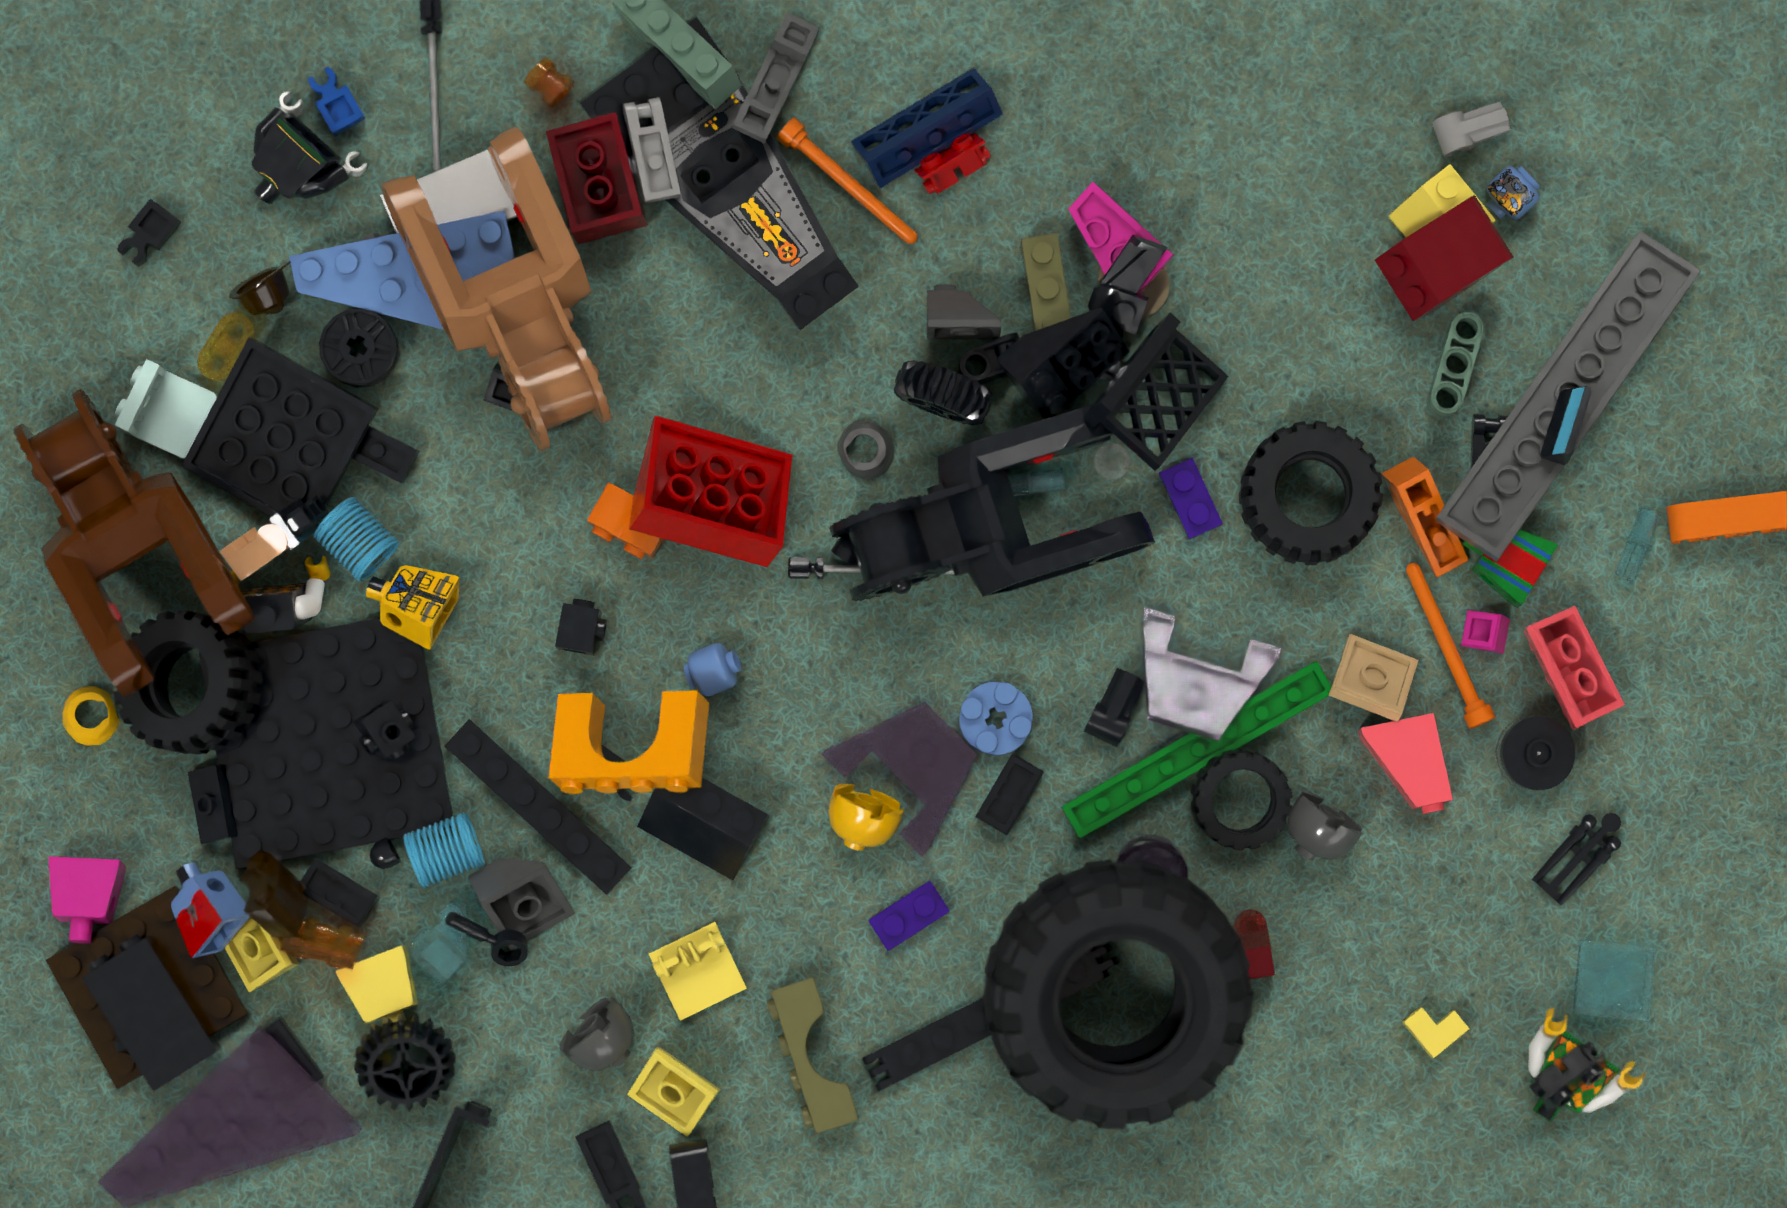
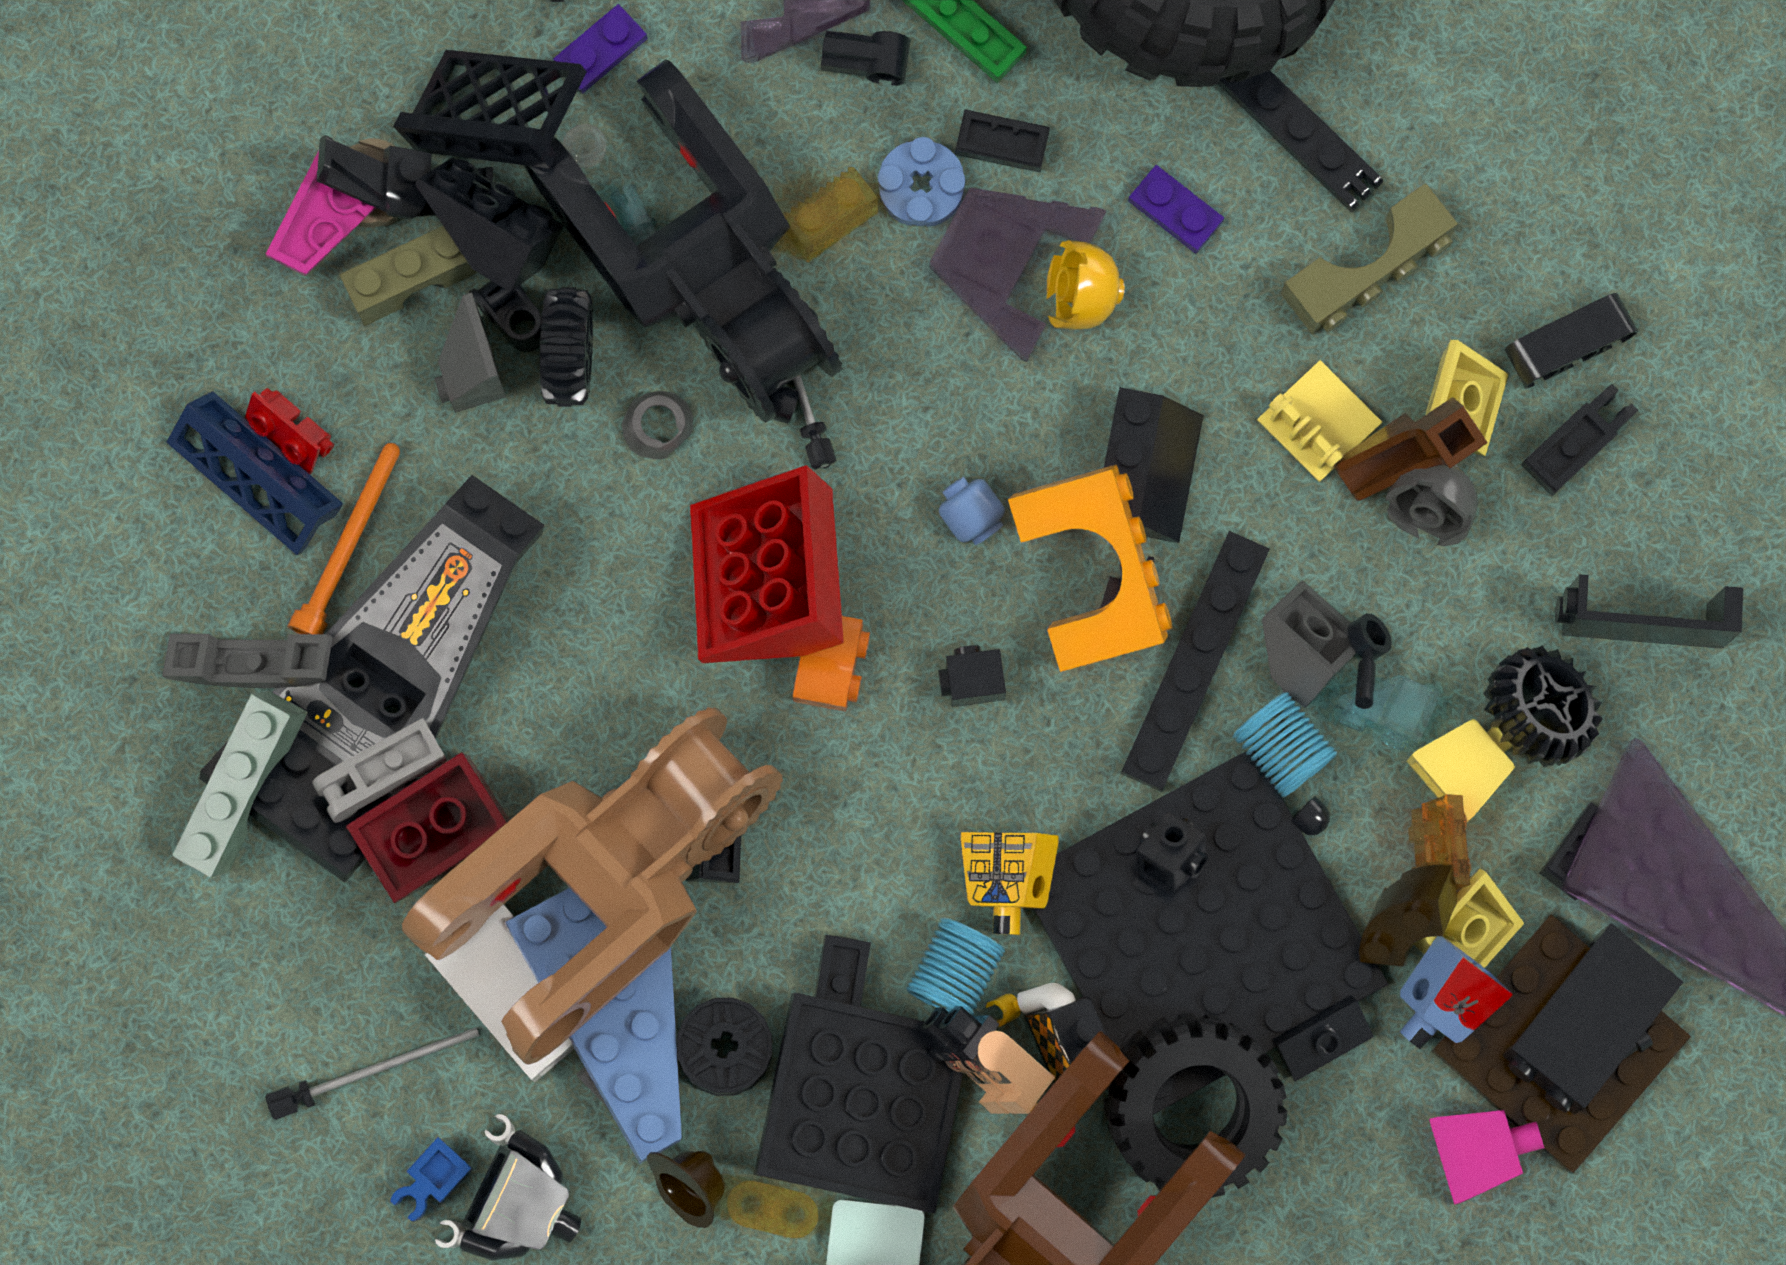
camera: 110 degrees left, 5 degrees down
(95, 735) = (1268, 1248): yellow piece -> none
(338, 893) = (1374, 854): black plate -> none
(552, 84) = (332, 924): clear orange wheel -> none
(645, 1026) = (1403, 445): none -> reddish brown arch
(989, 635) = (831, 214): none -> clear yellow brick

